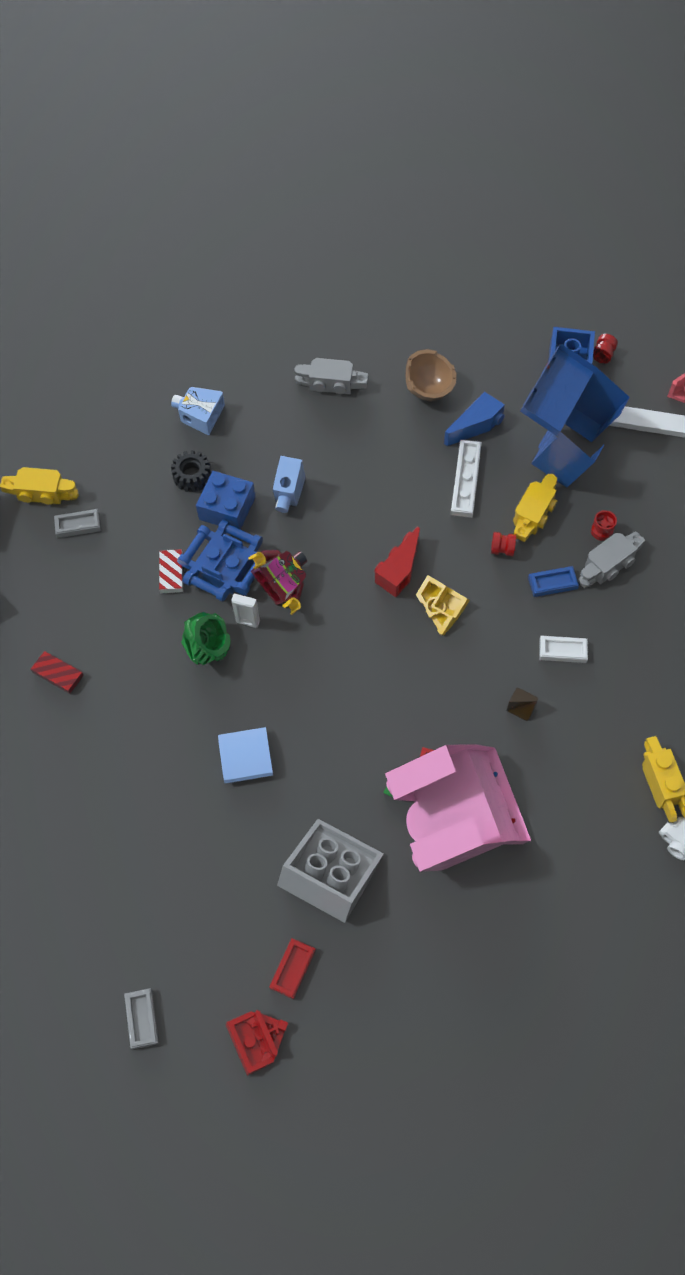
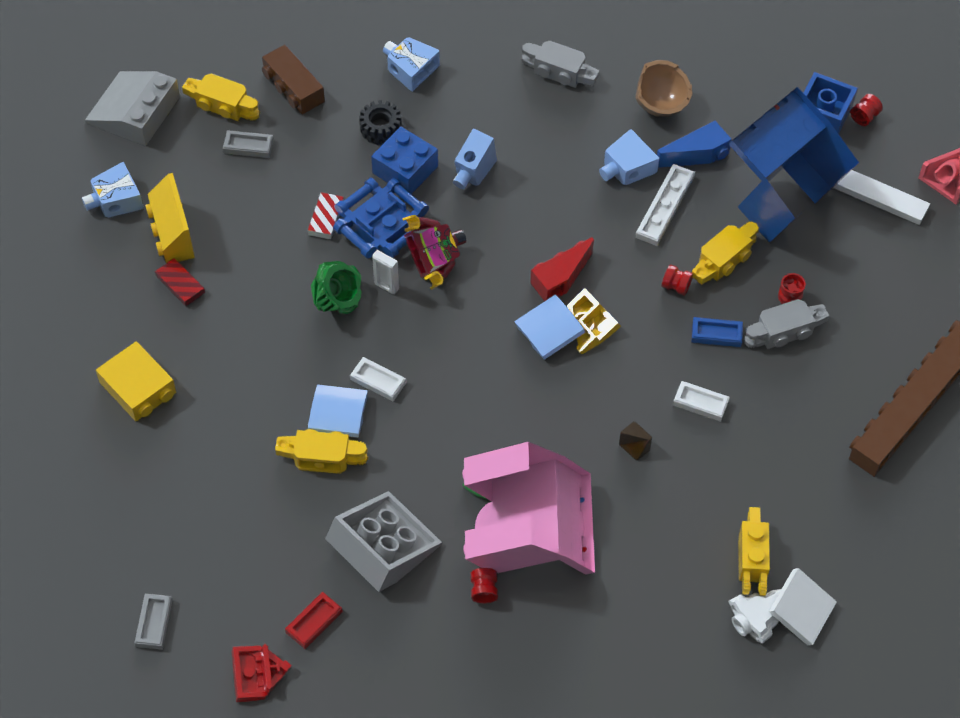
camera: 15 degrees right, 5 degrees down
(29, 617) = (169, 221): none -> yellow slope
(47, 782) = (136, 381): none -> yellow brick
(99, 452) = (293, 79): none -> reddish brown brick
(243, 799) = (322, 451): none -> yellow hinge
(271, 712) = (378, 379): none -> white tile
(408, 619) = (549, 327): none -> light blue slope
(422, 446) = (629, 160): none -> light blue torso
(438, 885) = (484, 585): none -> red wheel

